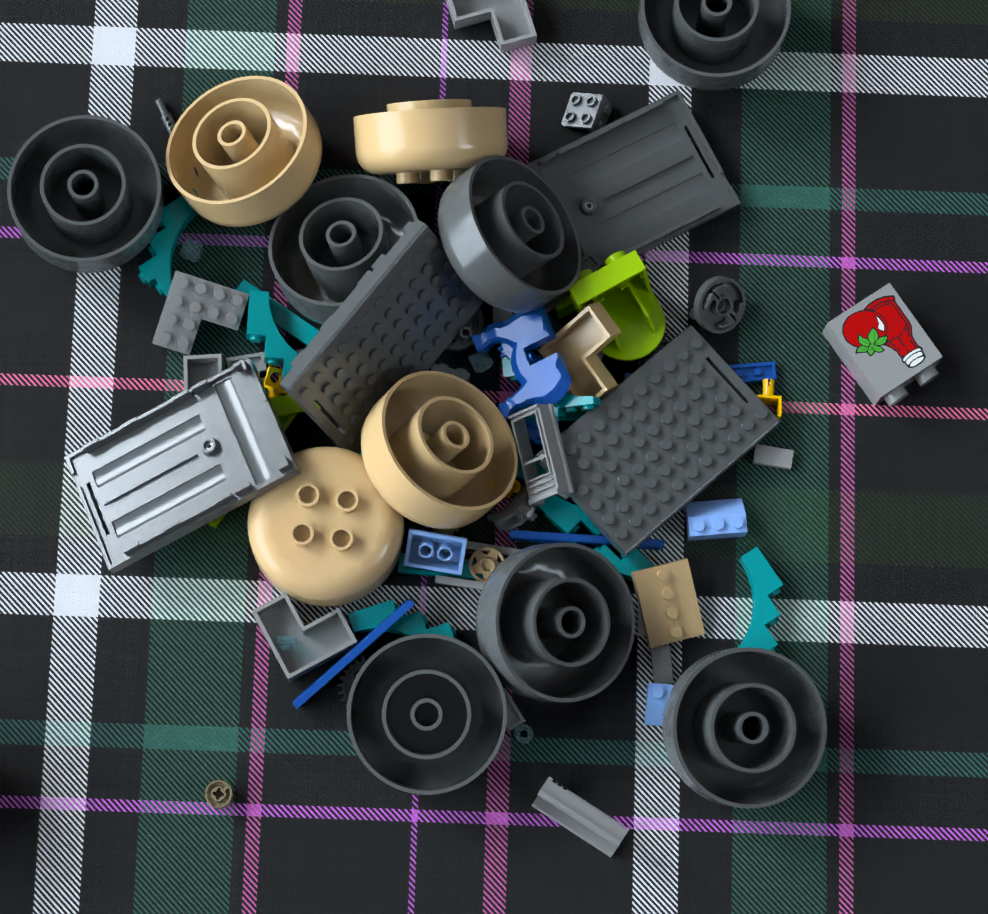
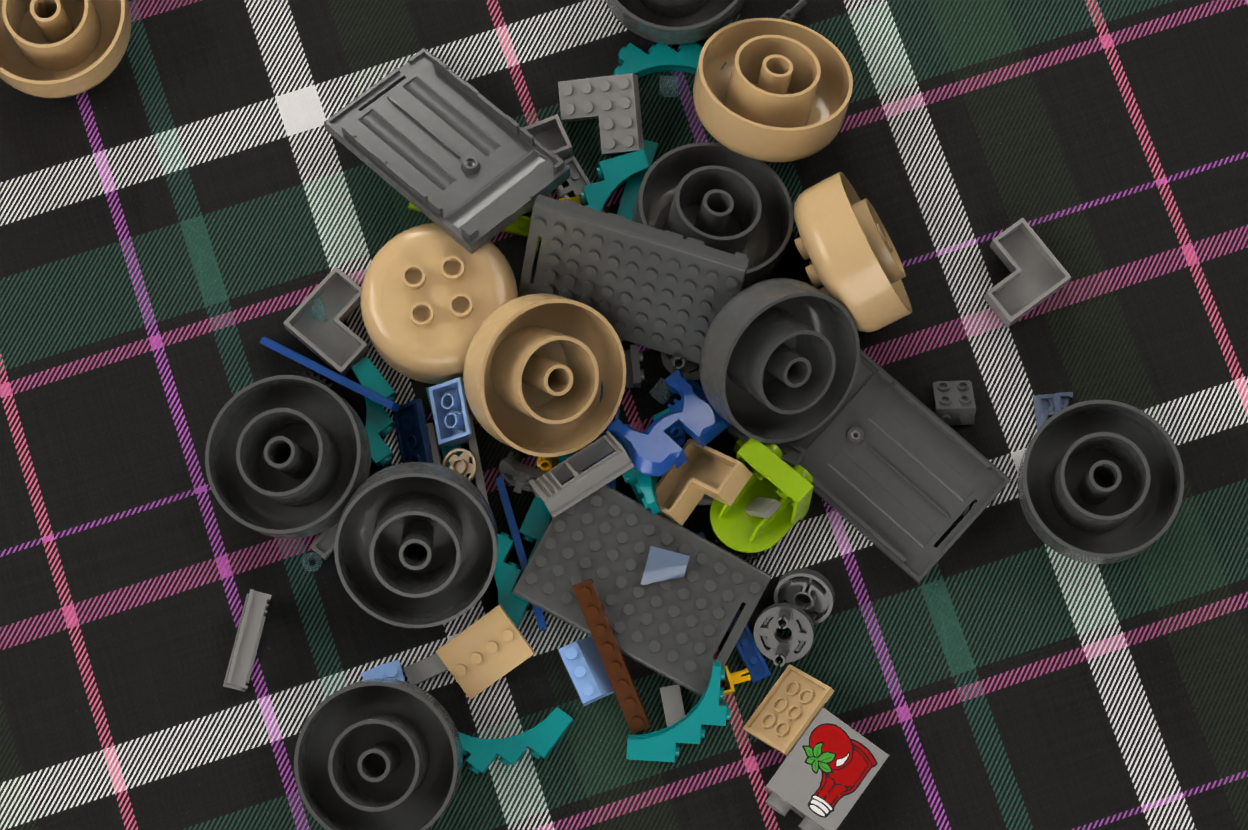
camera: 75 degrees right, 0 degrees up
(218, 794) = (158, 304): dark tan wheel -> none
(444, 598) = (413, 432): none -> dark blue plate
(625, 36) = (1048, 405): none -> sand blue slope
(629, 307) = (762, 507): none -> light grey tile
(652, 412) = (663, 565): none -> sand blue slope
(714, 489) = (611, 656): none -> reddish brown plate
(756, 341) = (781, 647): none -> dark grey piece
(802, 447) = (708, 711): none -> teal arch
(815, 356) = (788, 709): none -> tan plate

